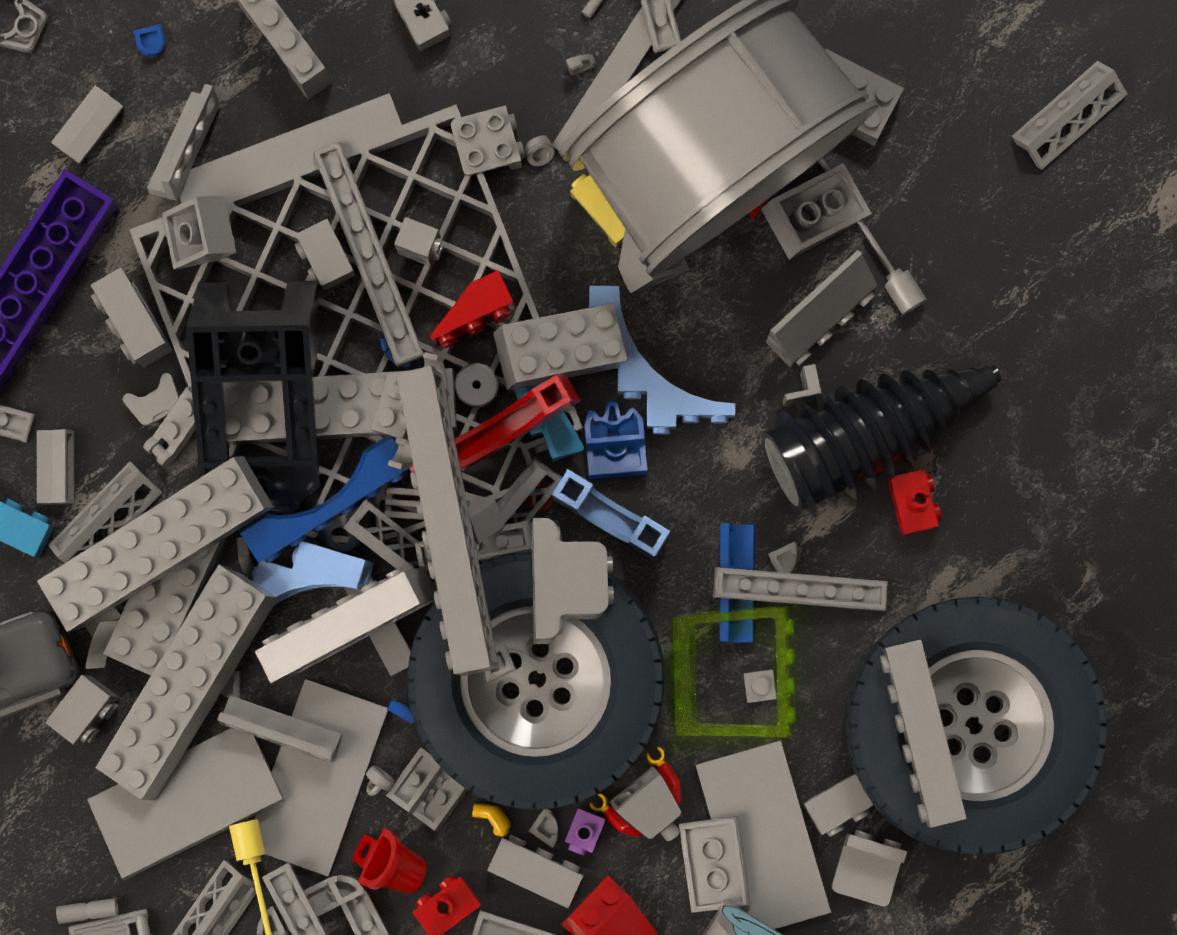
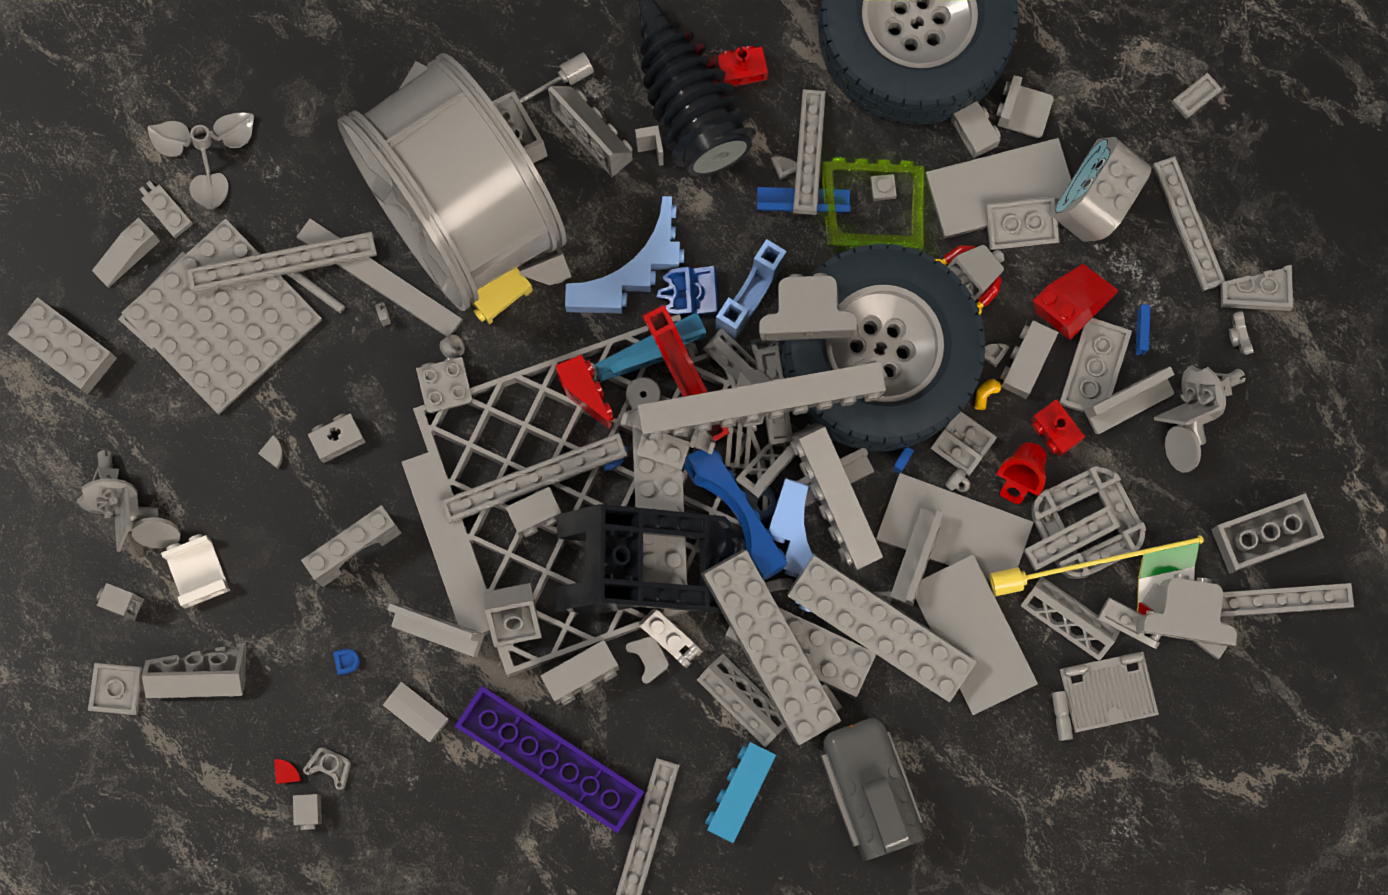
camera: 95 degrees left, 5 degrees down
(55, 467) = (700, 740): light grey piece -> none
(83, 710) = (902, 714): light grey brick -> none
(101, 637) = (851, 704): white sticker -> none
(419, 242) = (527, 433): light grey brick -> none
(560, 344) = (616, 323): light grey brick -> none
(592, 823) = (994, 328): medium lavender brick -> none
(924, 734) = (928, 47): light grey brick -> none

